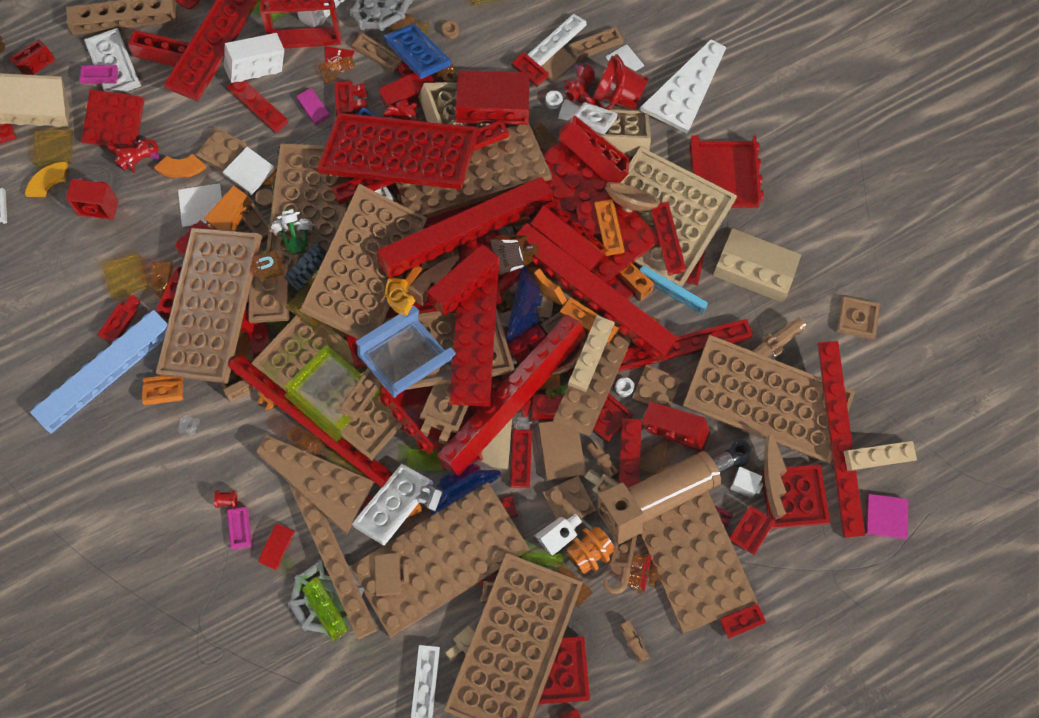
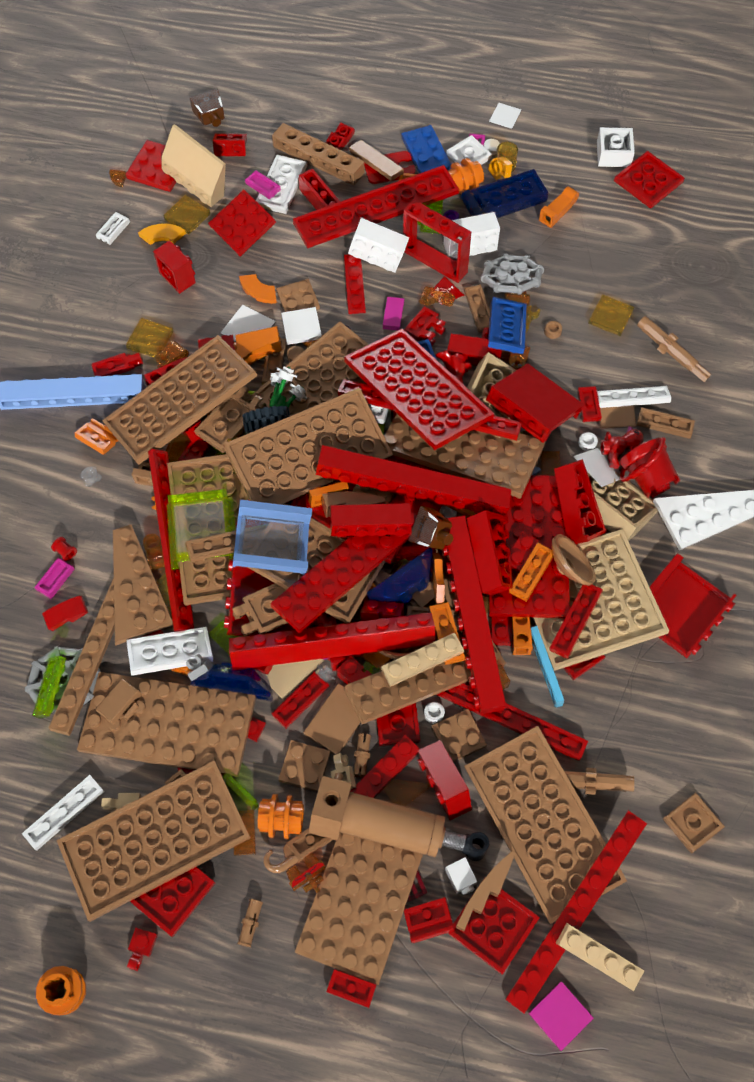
camera: 45 degrees right, 5 degrees down
(130, 156) = (229, 256): red animal -> none
(267, 266) = (240, 399): clear orange brick -> none
(397, 296) = (305, 495): light orange tile -> none
(550, 535) = (259, 781): white torso -> none
(596, 117) = (605, 478): white tile -> none
(628, 57) = (680, 453): white sticker -> none
(757, 265) = (640, 704): tan slope -> none

